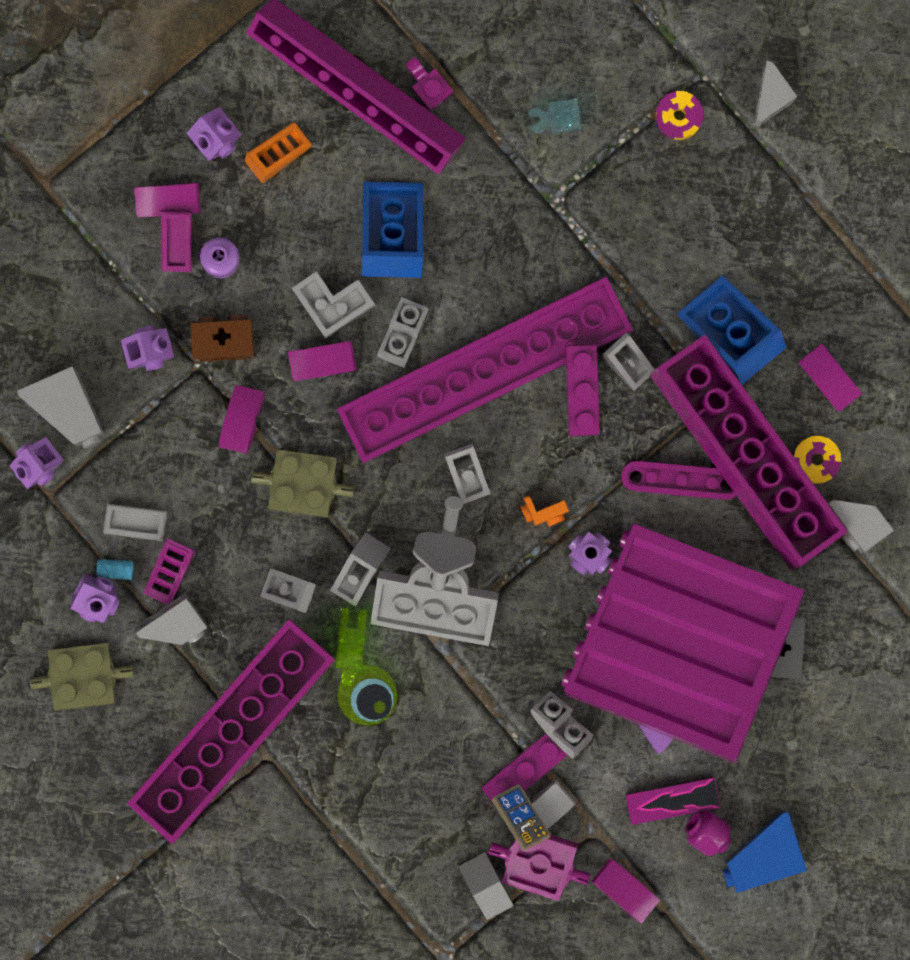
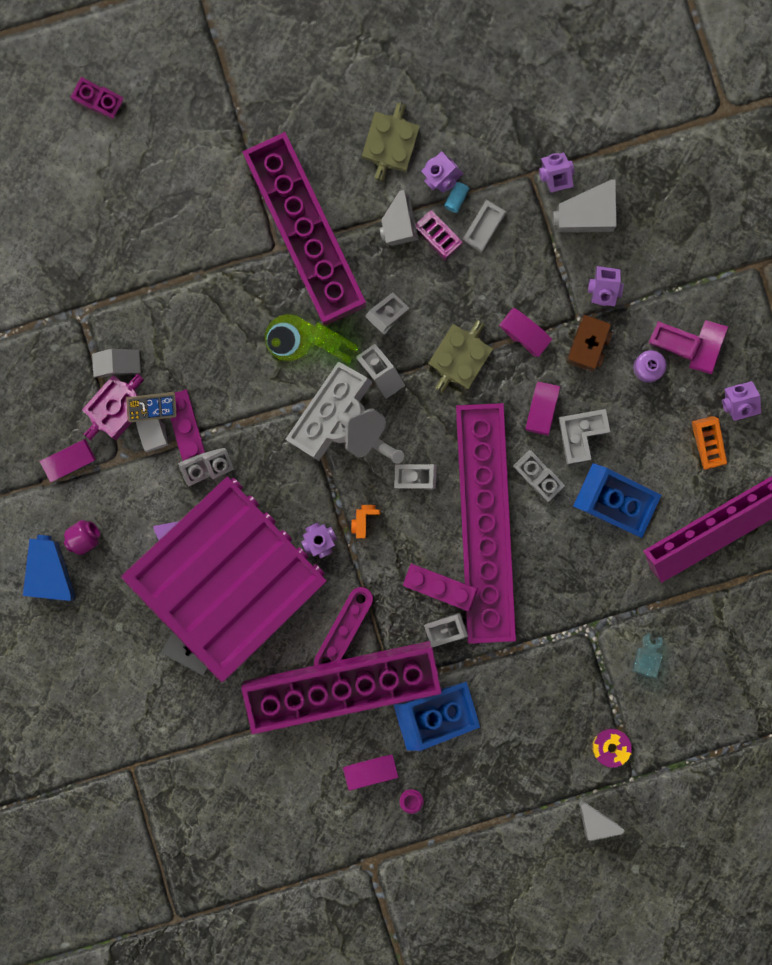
camera: 115 degrees right, 0 degrees up
(430, 86) = (710, 573): magenta plate -> none
(672, 801) = (116, 522): tile -> none
(830, 458) = (319, 746): yellow piece -> none
(842, 317) = (411, 801): none -> magenta plate
(863, 522) = (253, 748): light grey slope -> none

